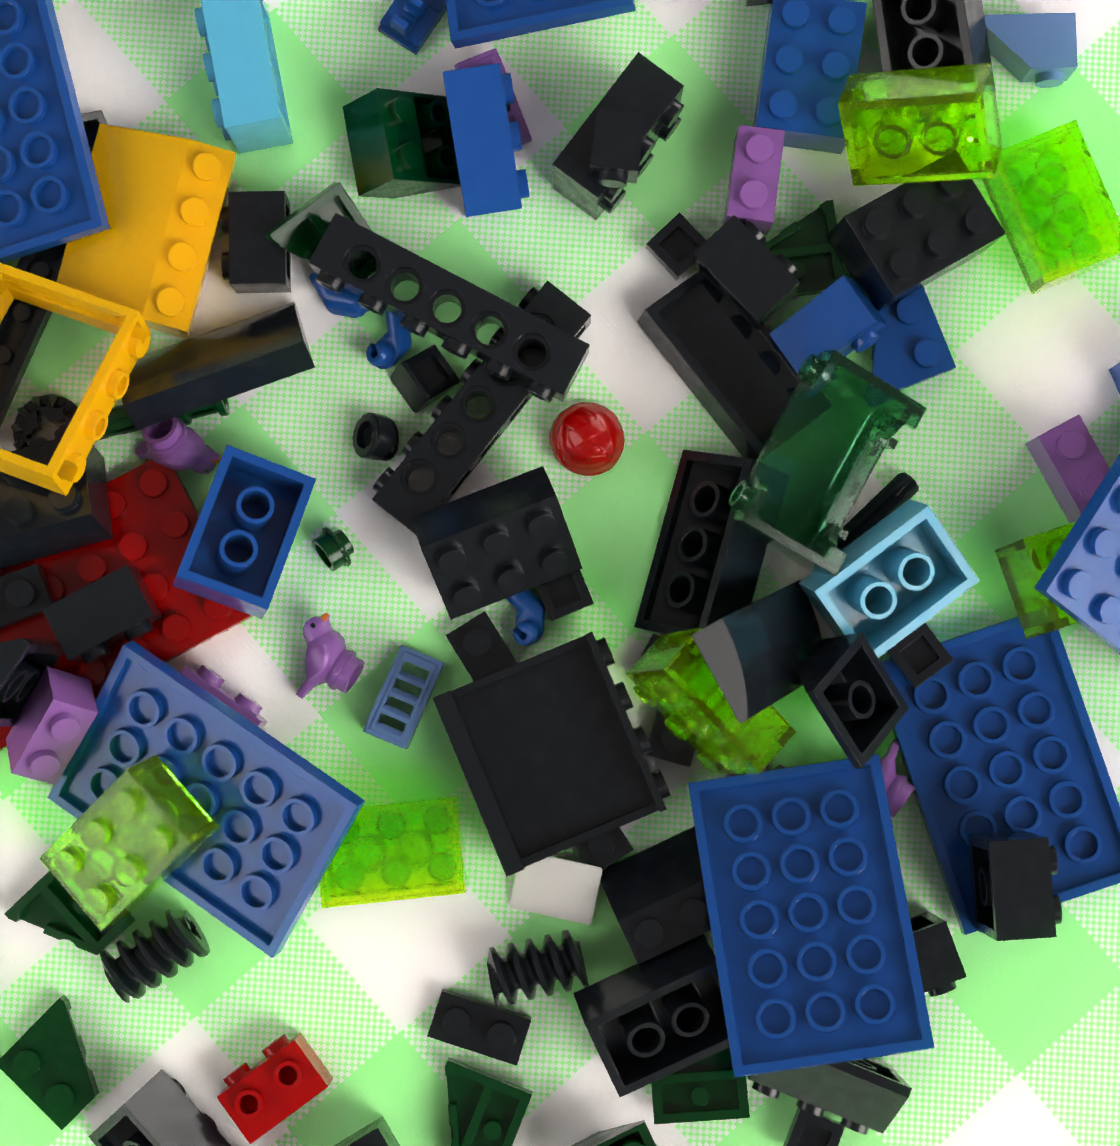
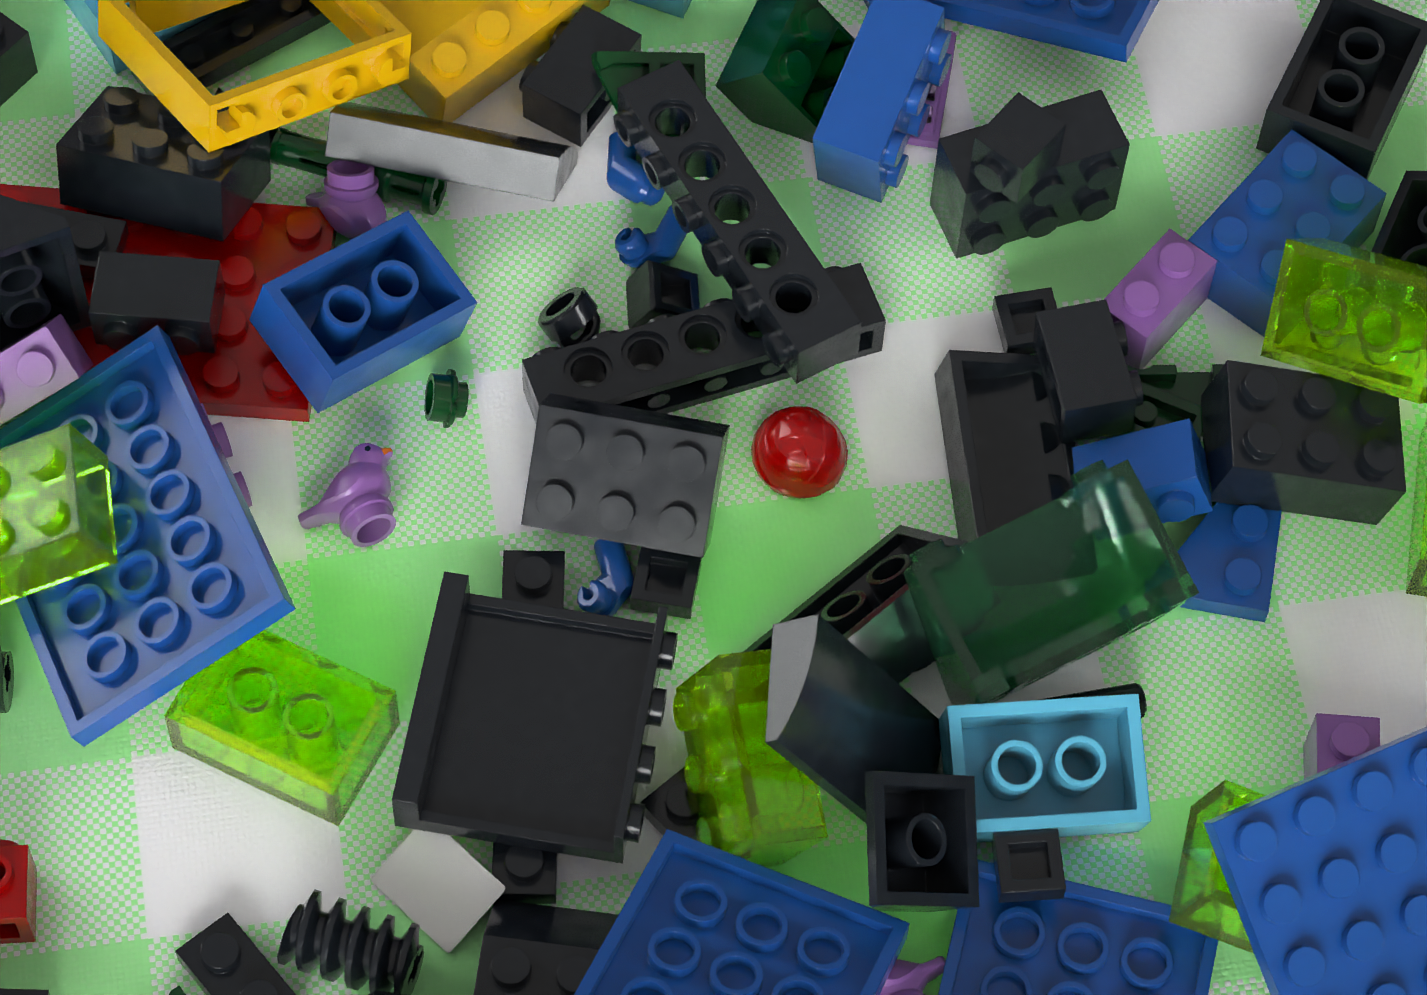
camera: 30 degrees right, 25 degrees down
(374, 726) = (382, 579): medium blue slope -> none

